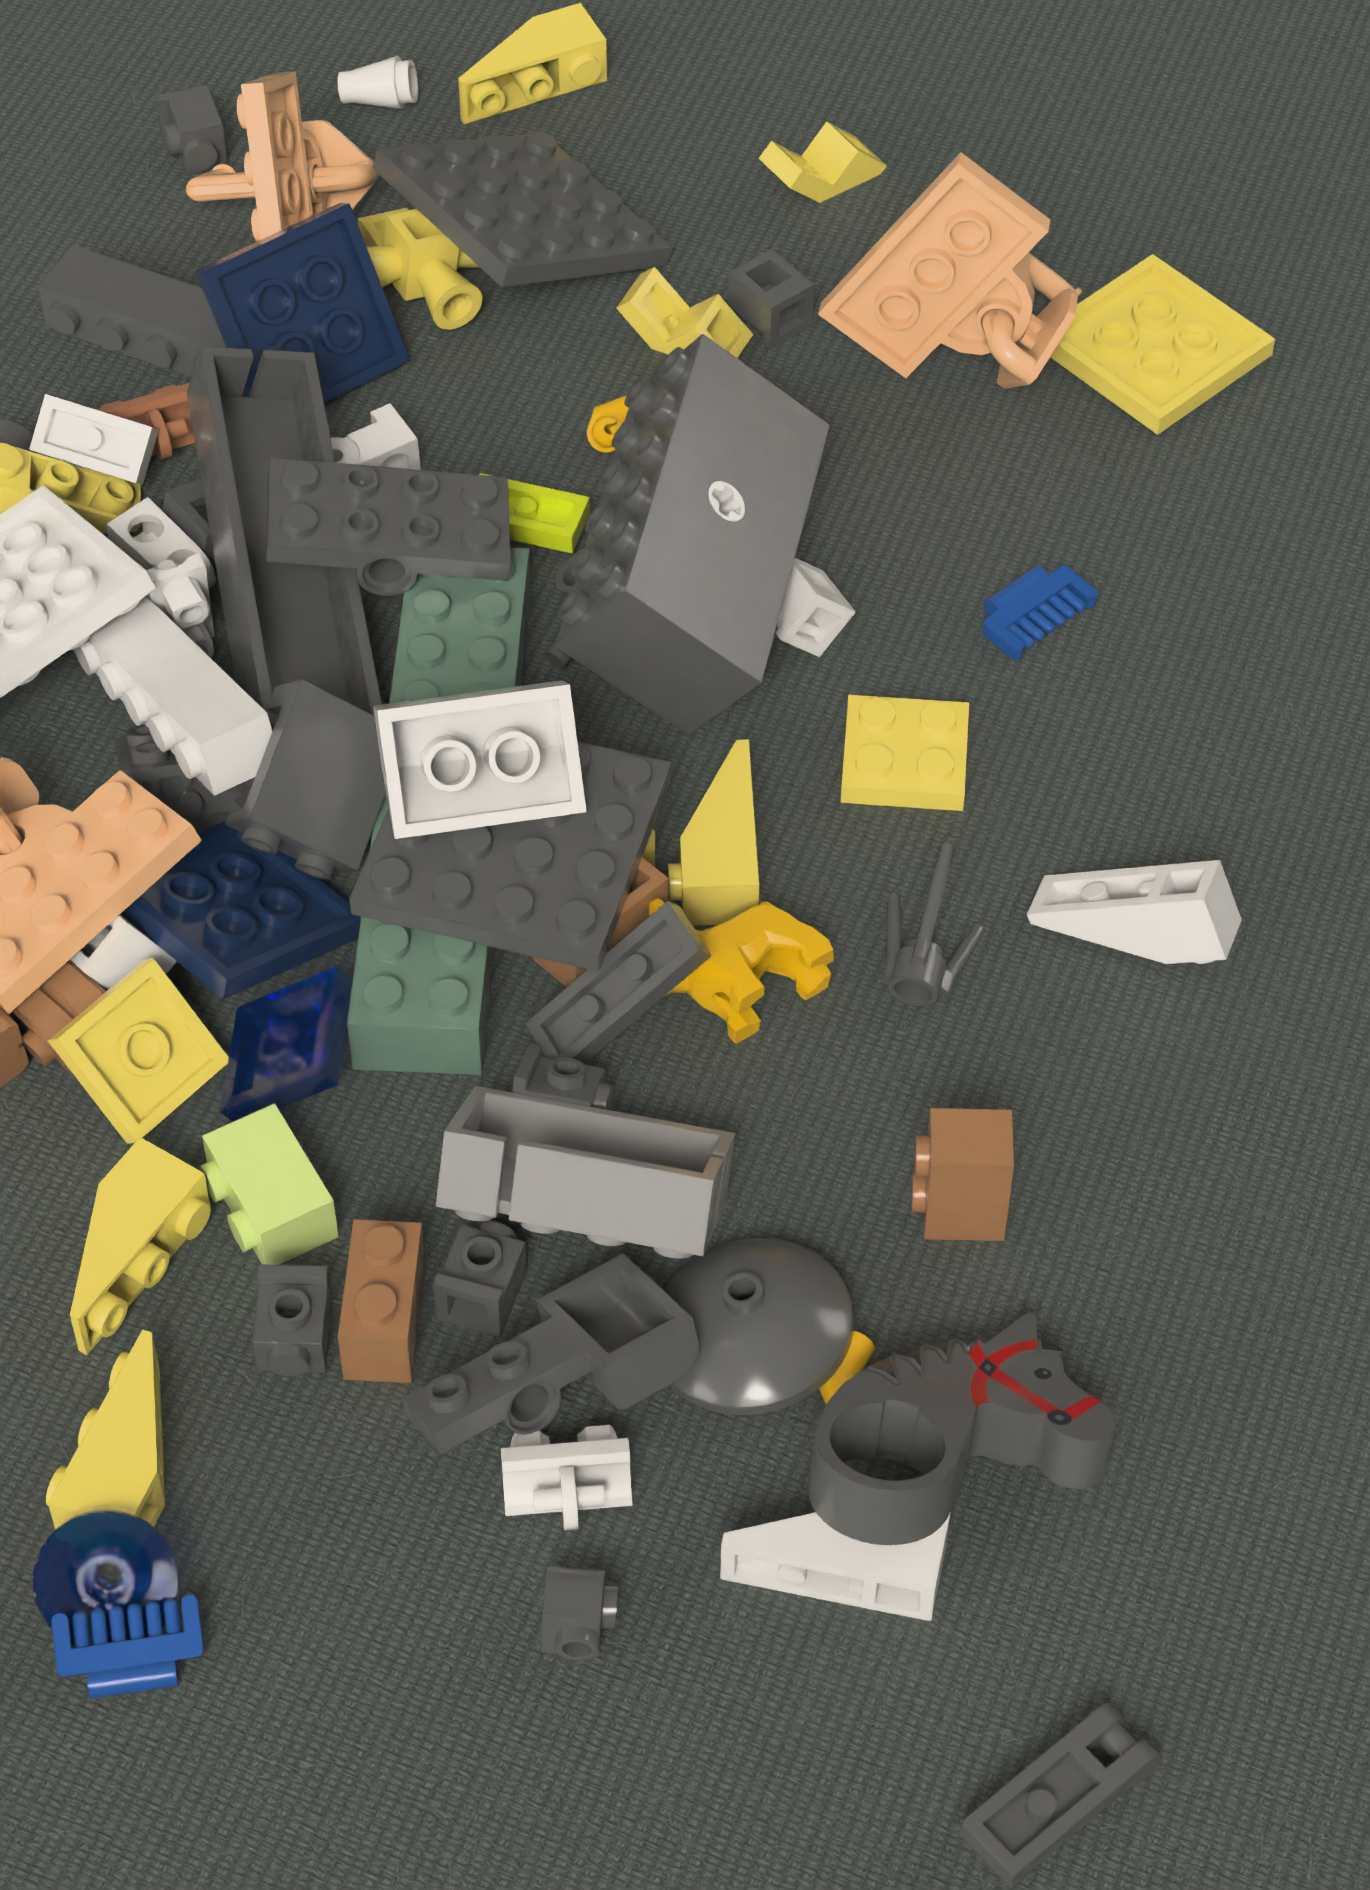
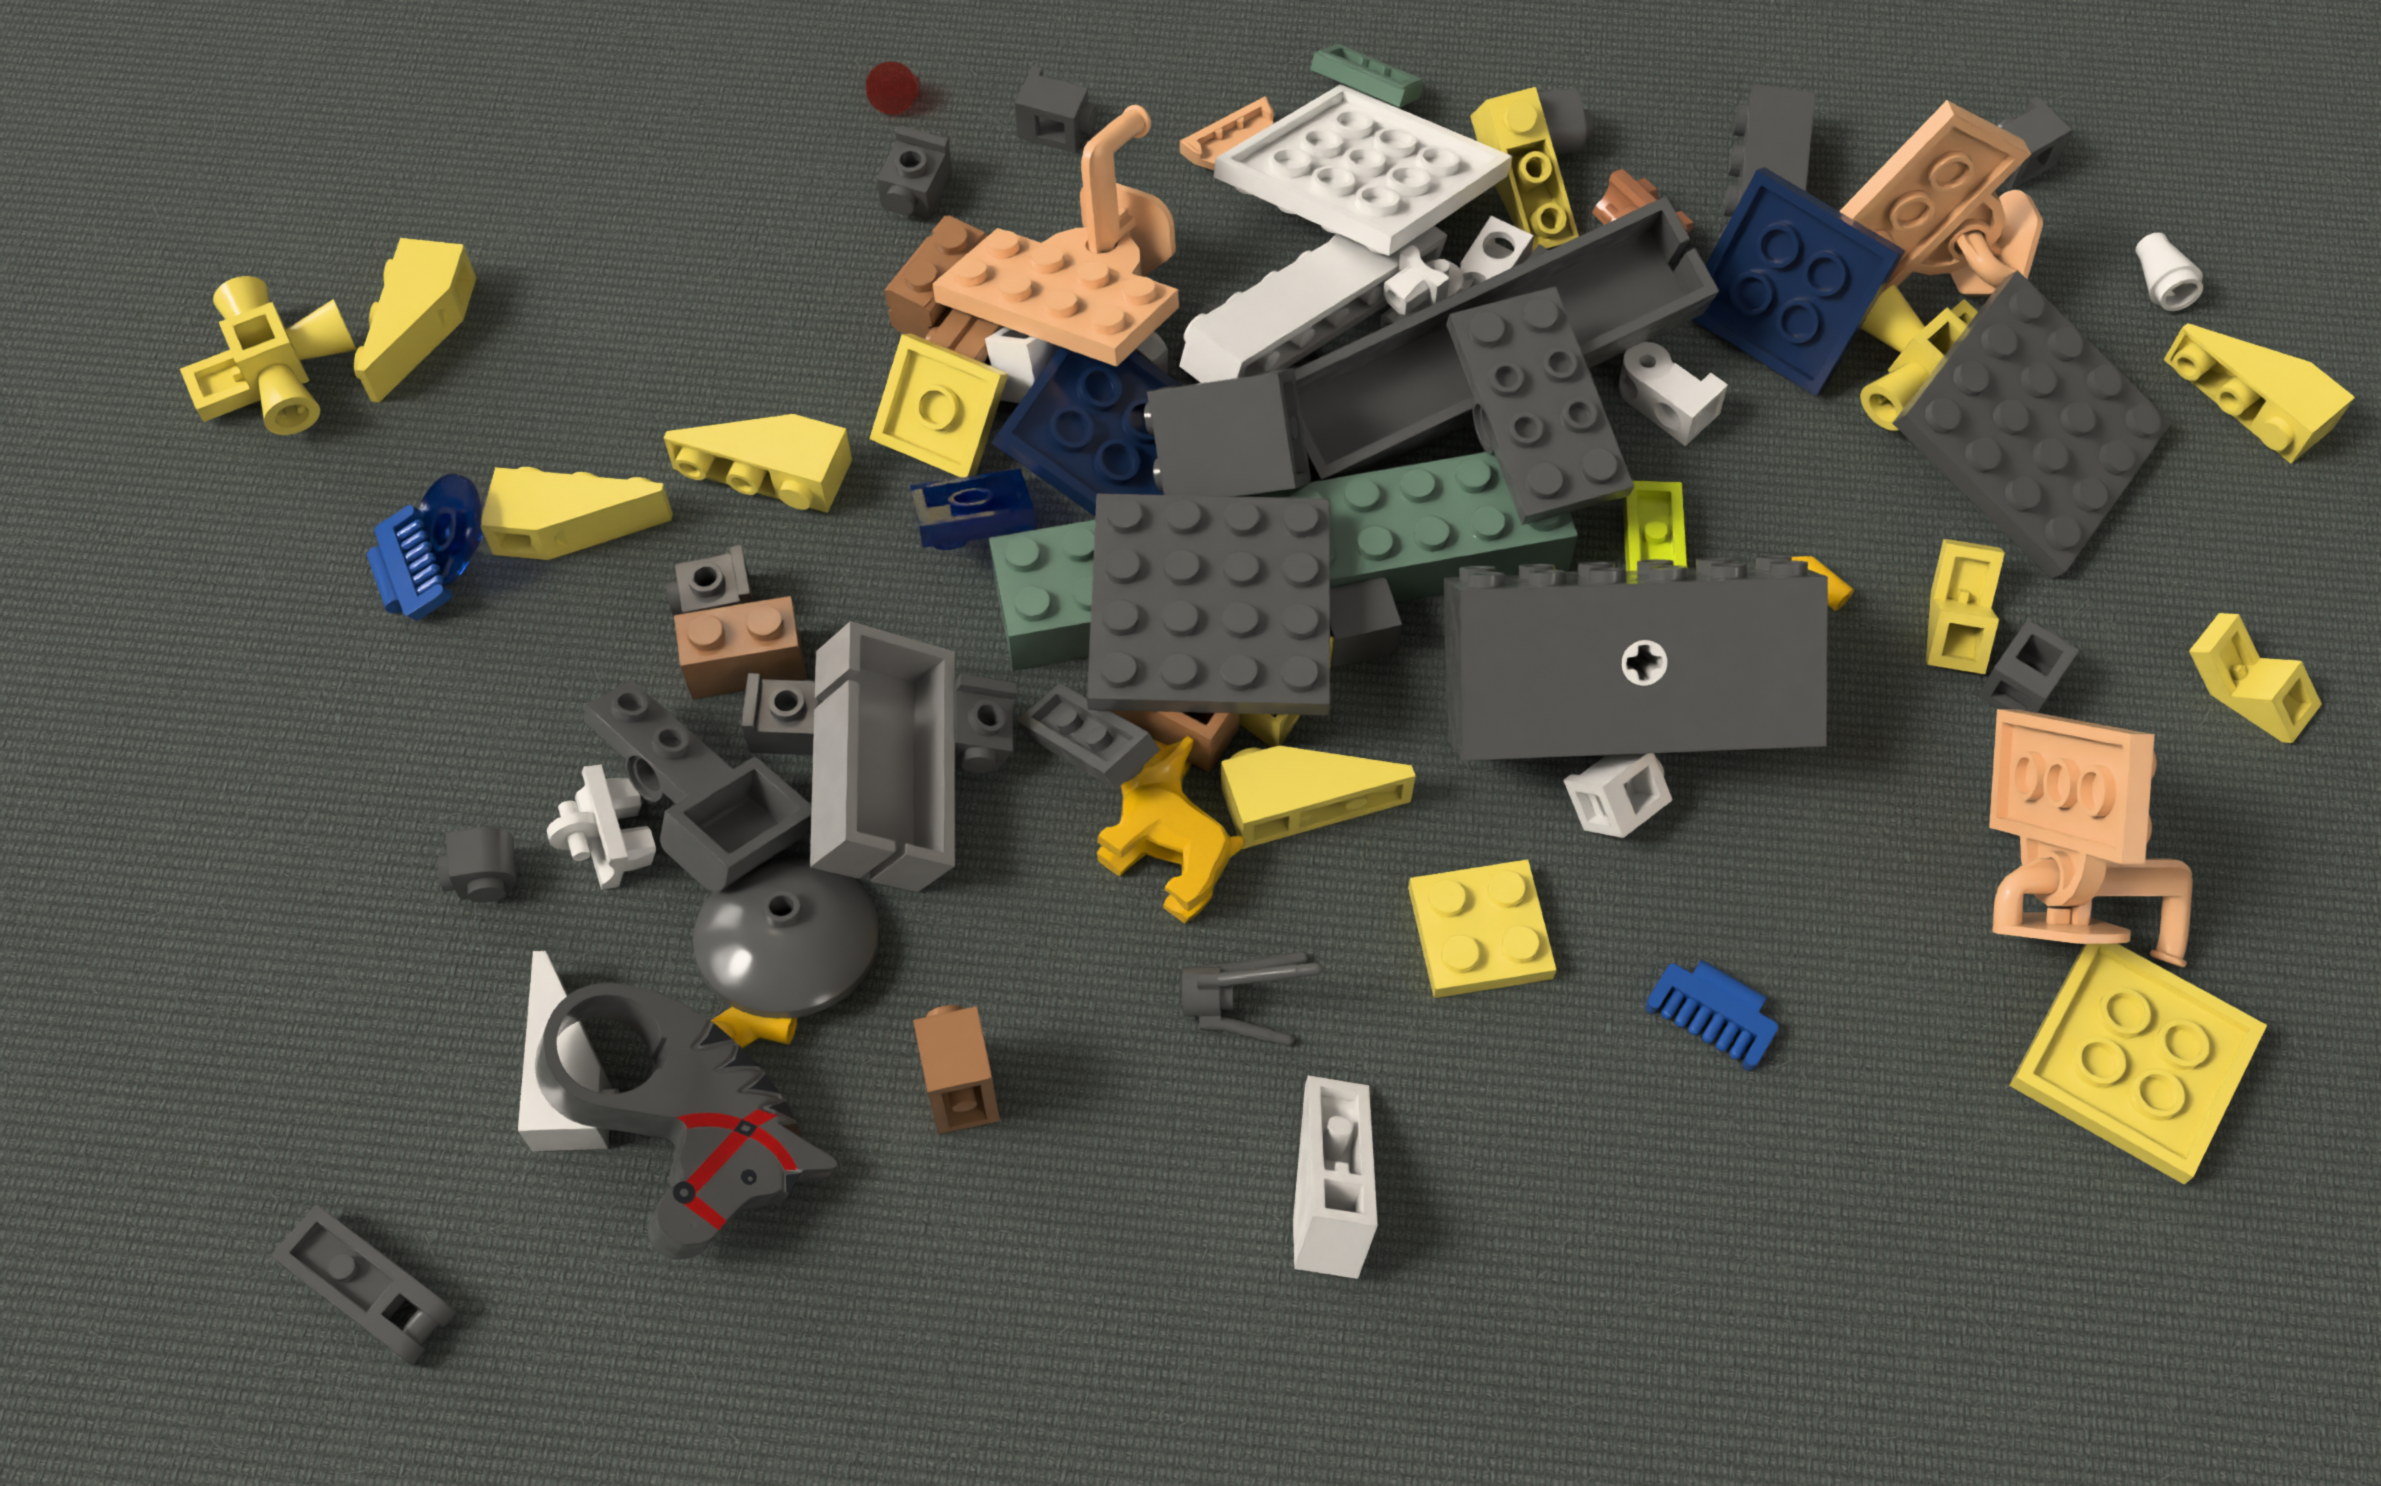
camera: 75 degrees right, 10 degrees up
(94, 439) = (1584, 177): white plate -> none
(269, 1187) = (839, 538): yellowish green brick -> none
(480, 759) = (1254, 537): white slope -> none

